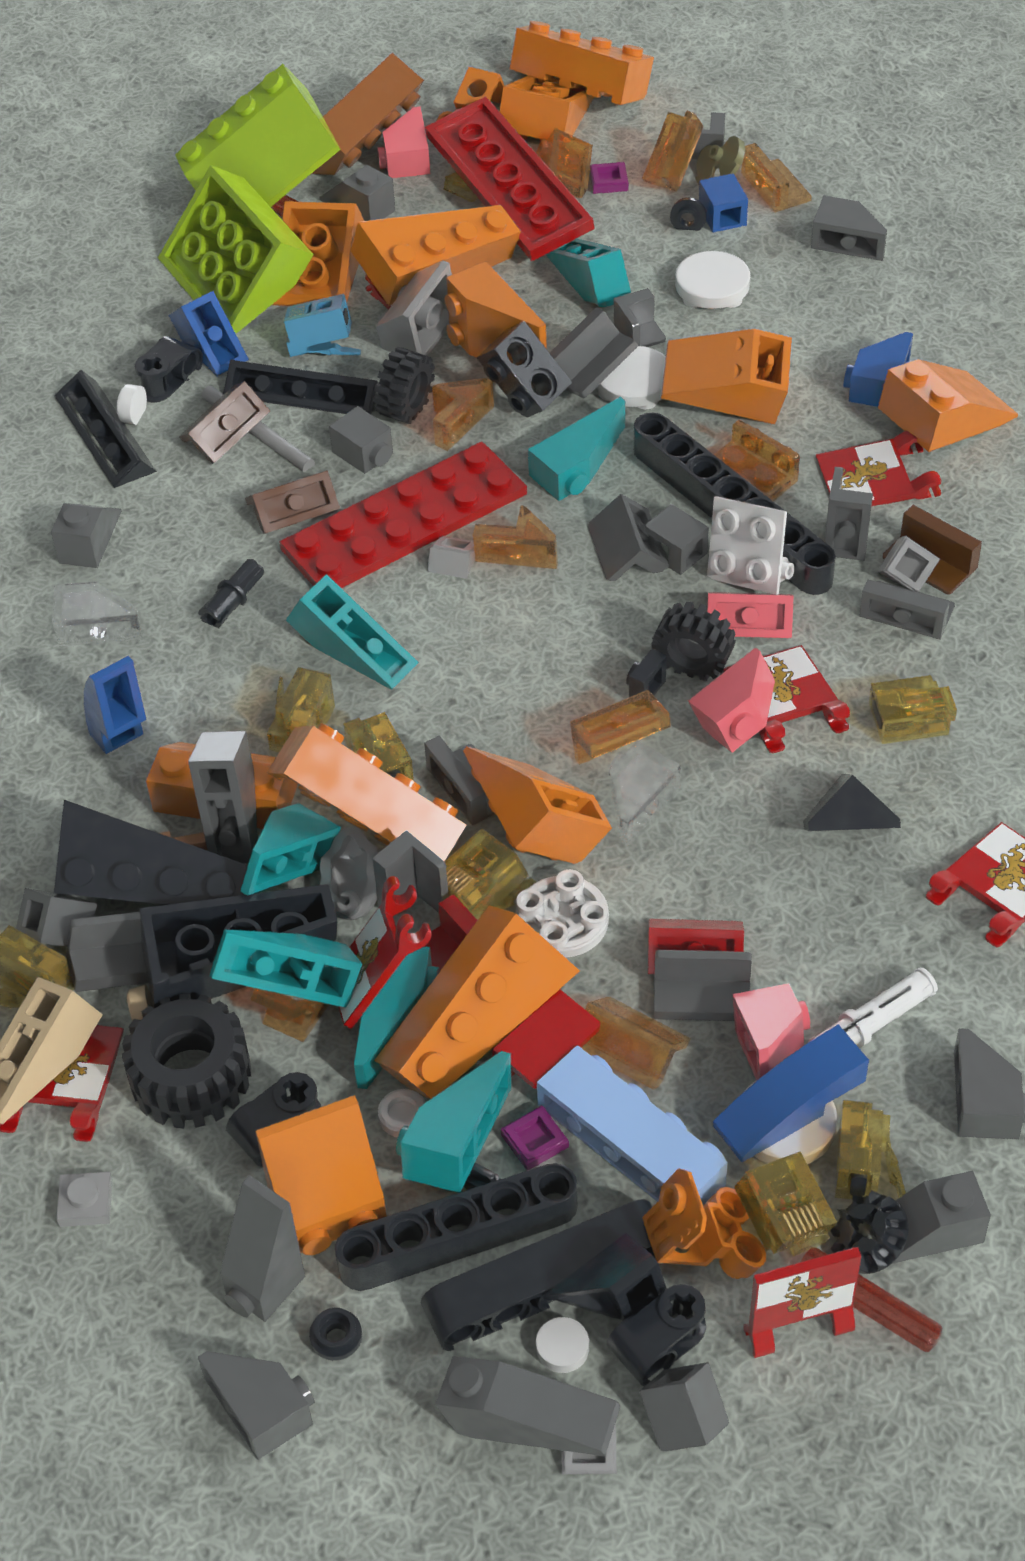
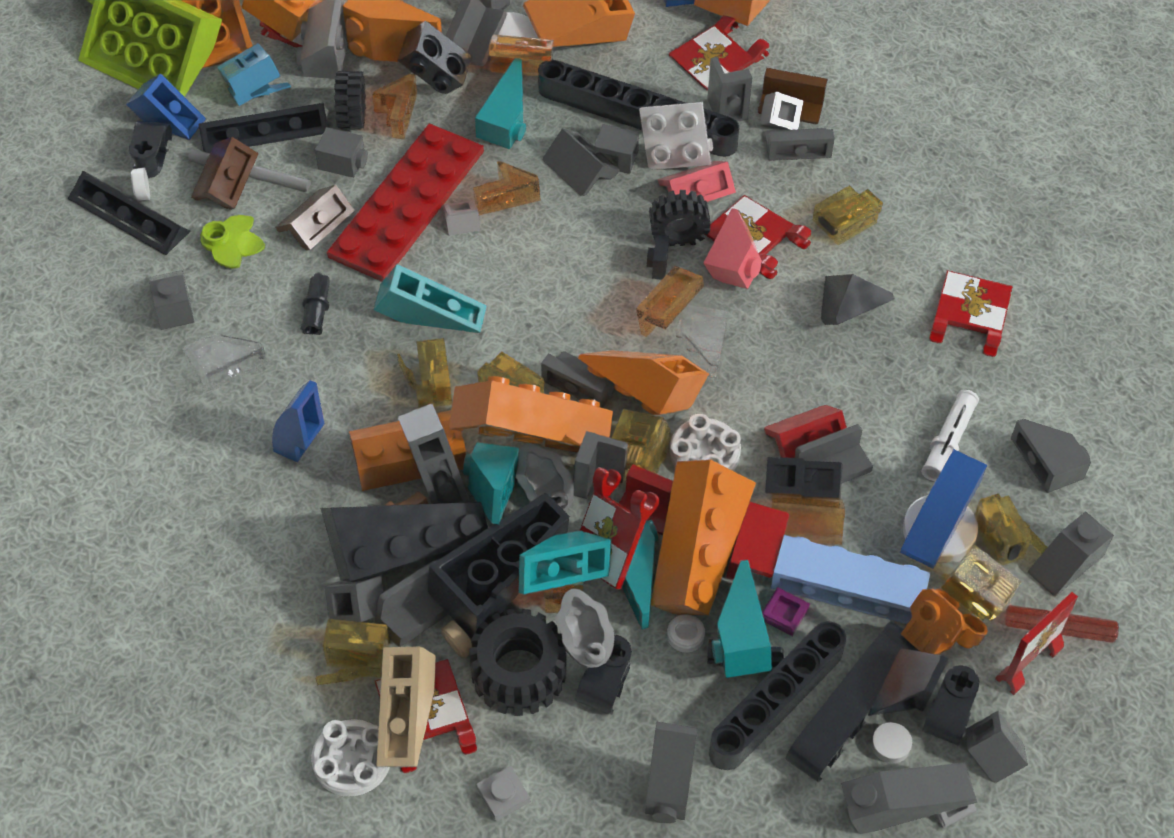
camera: 30 degrees left, 5 degrees up
(189, 494) = (234, 240): none -> lime plate
(267, 1050) = (585, 629): none -> light grey arm
(323, 1171) = (681, 694): orange slope -> none
(335, 1319) = (743, 794): black plate -> none
(638, 394) = (532, 51): none -> clear orange panel
(649, 992) = (804, 478): none -> black slope
(760, 460) = (637, 68): clear orange bracket -> none
(769, 1025) = (895, 472): coral slope -> none
(885, 1218) = (1051, 568): black gear -> none

